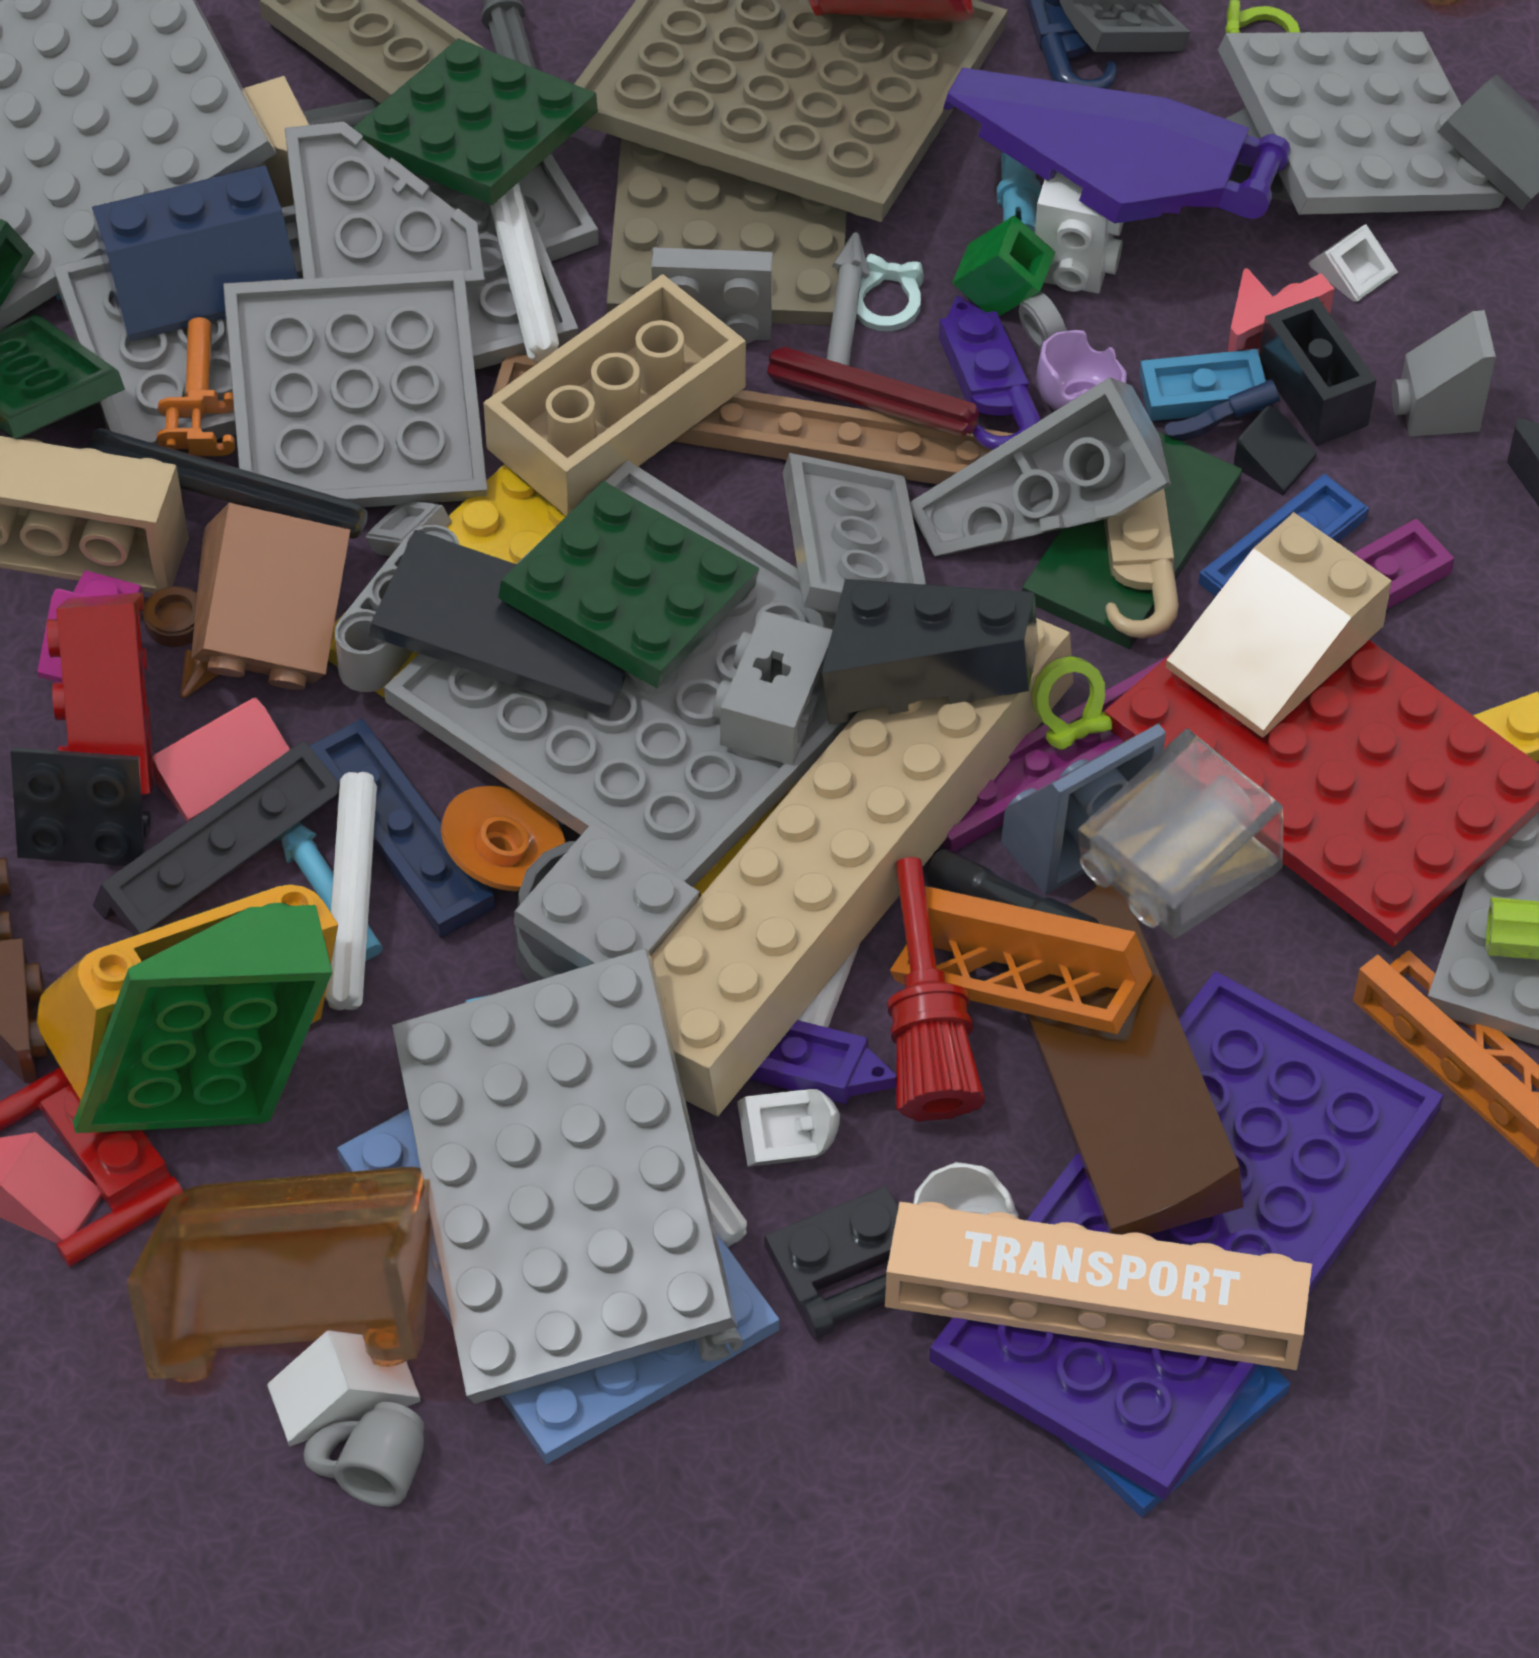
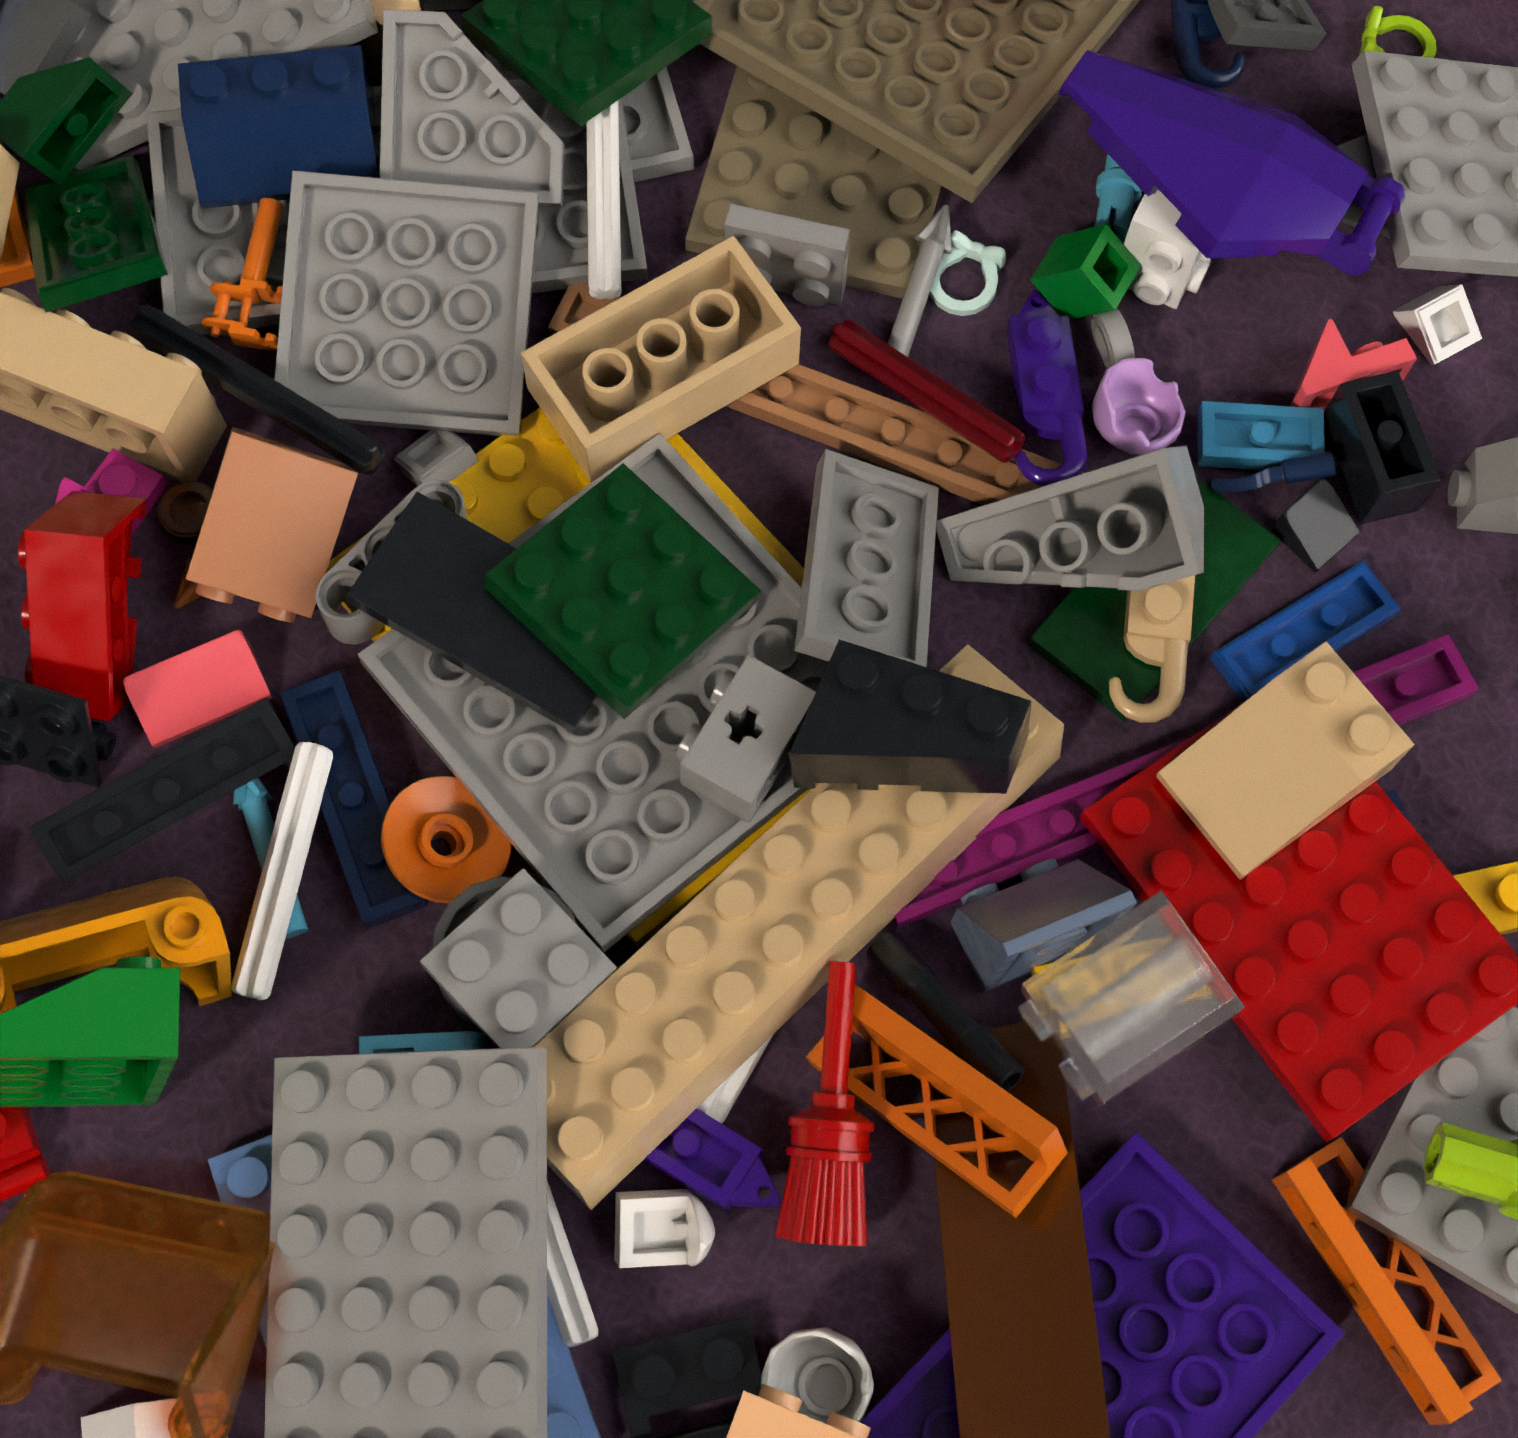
camera: 10 degrees right, 15 degrees up
(1093, 719) = (1032, 824): lime piece -> none

